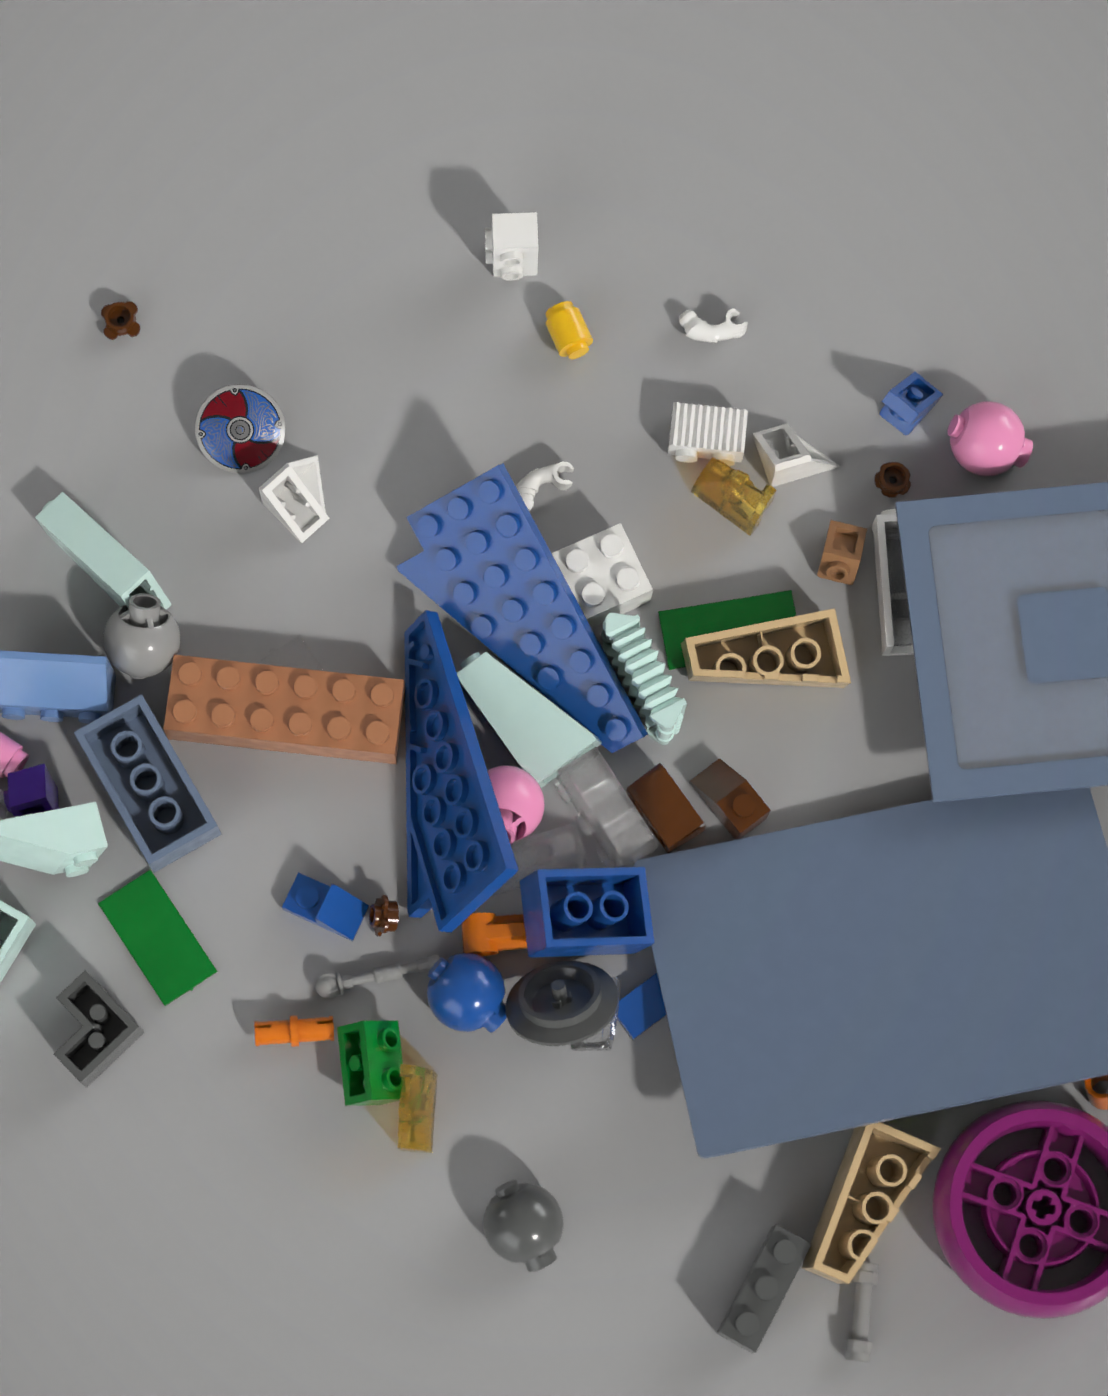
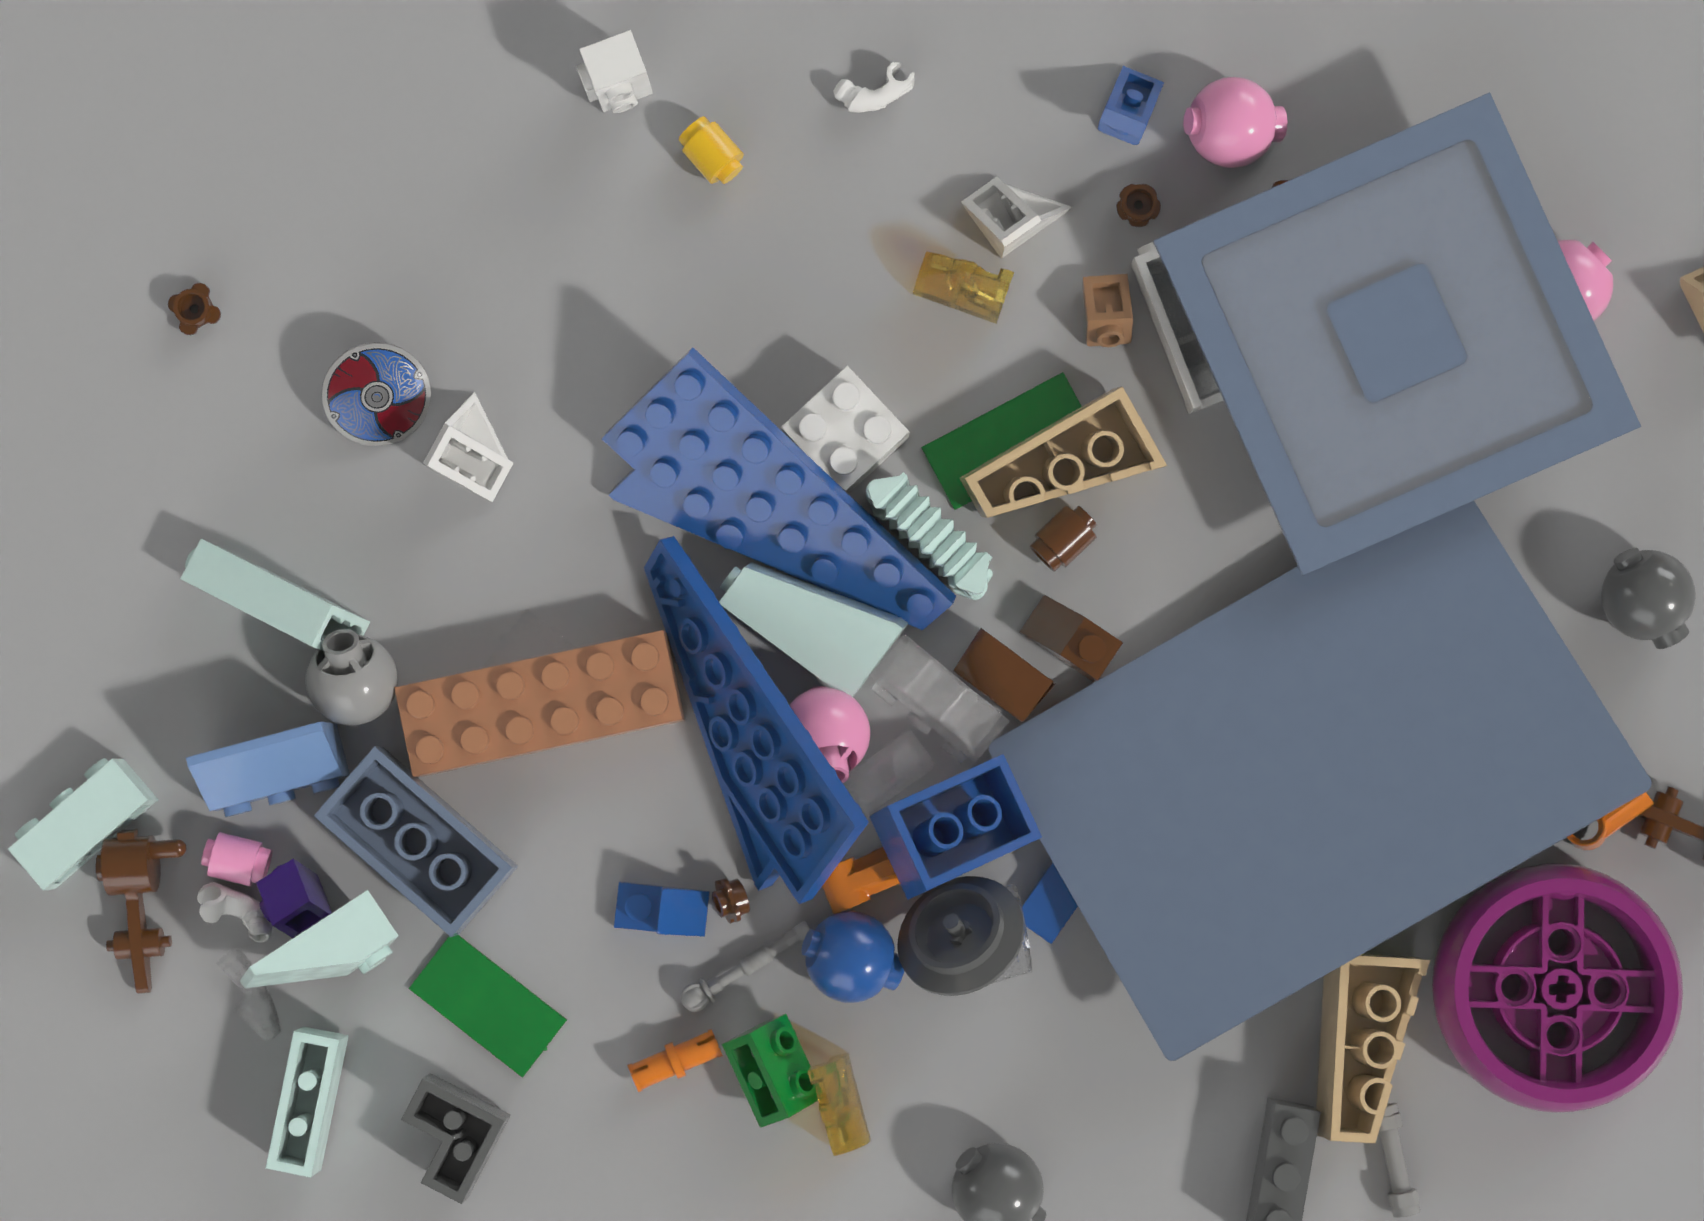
camera: 10 degrees left, 10 degrees up
(549, 474) = (727, 350): white piece -> none
(707, 433) = (910, 222): white brick -> none
(750, 716) = (1064, 537): none -> reddish brown brick

